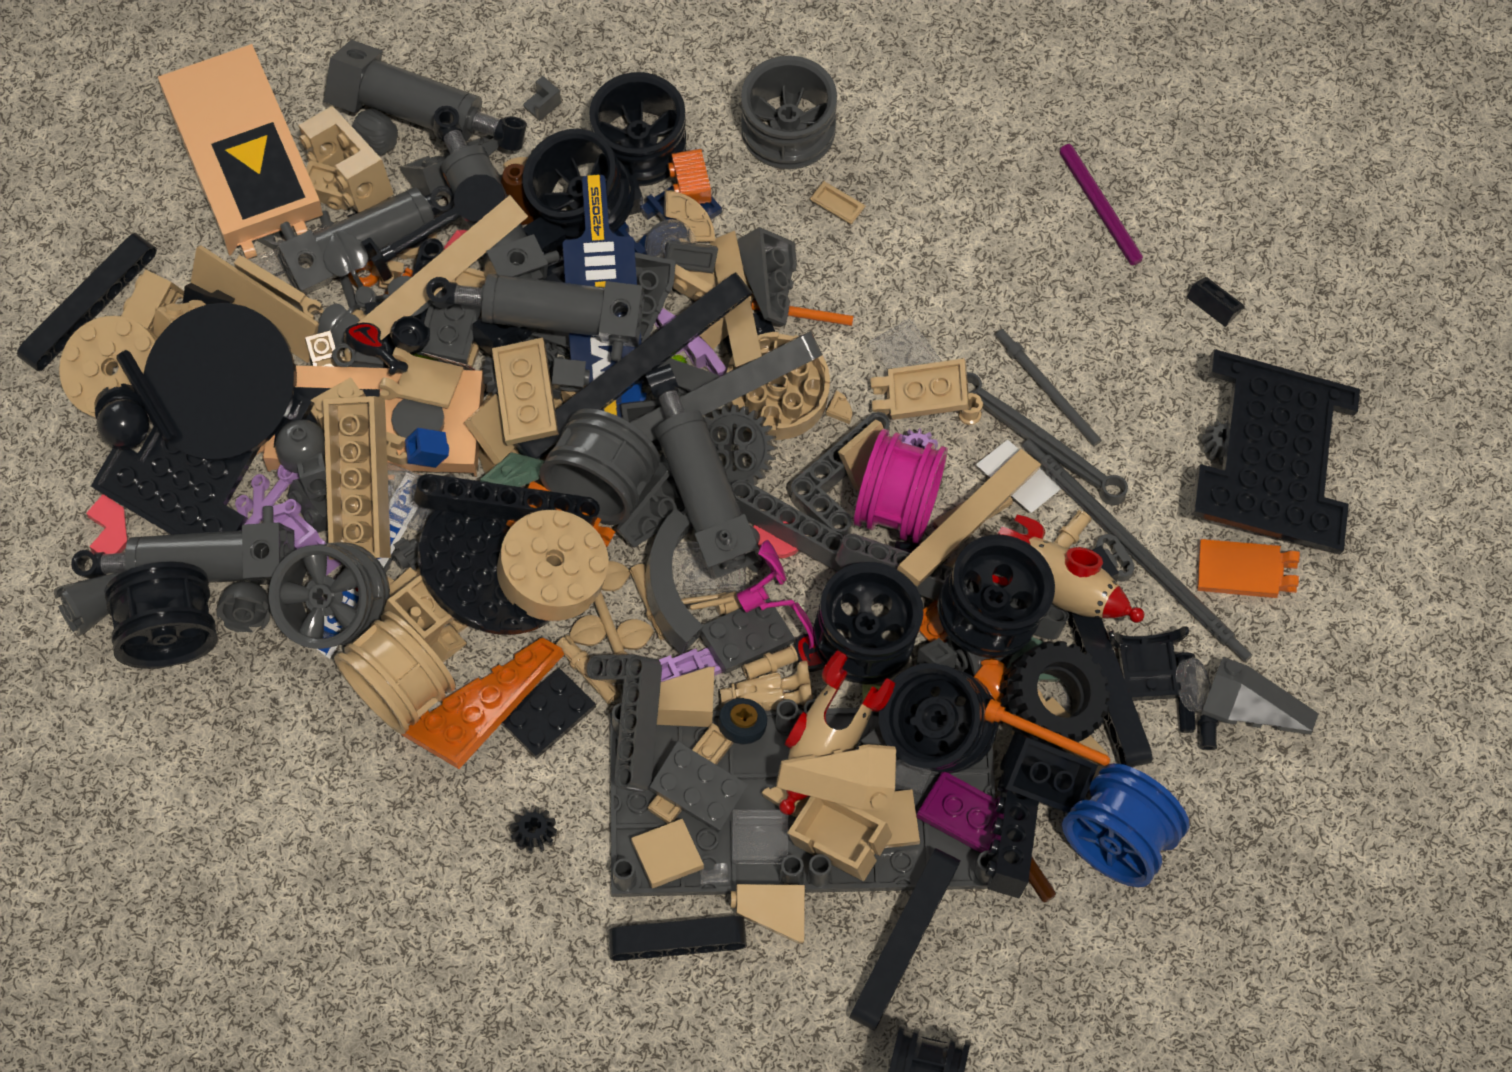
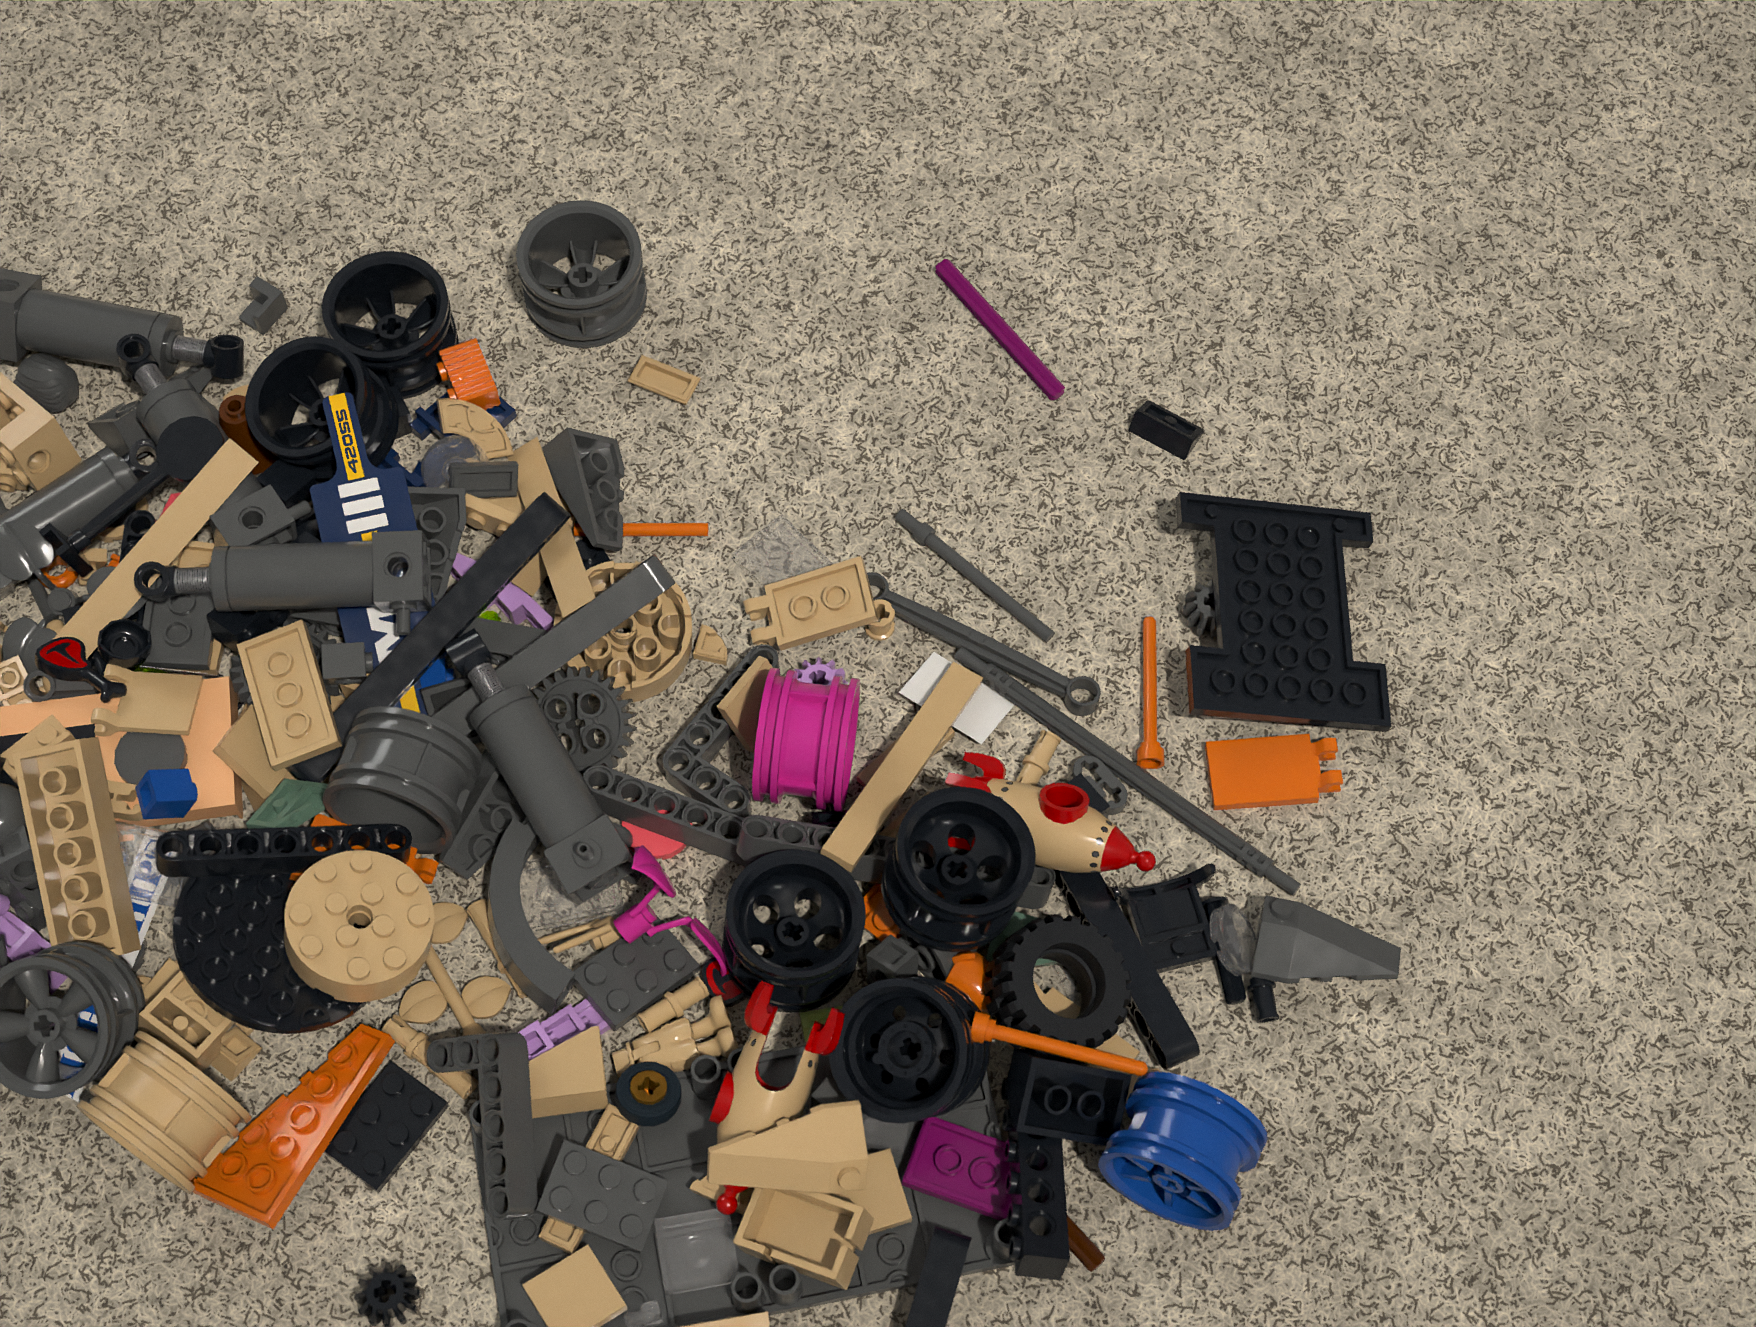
camera: 10 degrees left, 0 degrees up
(406, 554) = (159, 940): dark grey gear -> none
(1157, 539) = (1150, 753): none -> orange piece

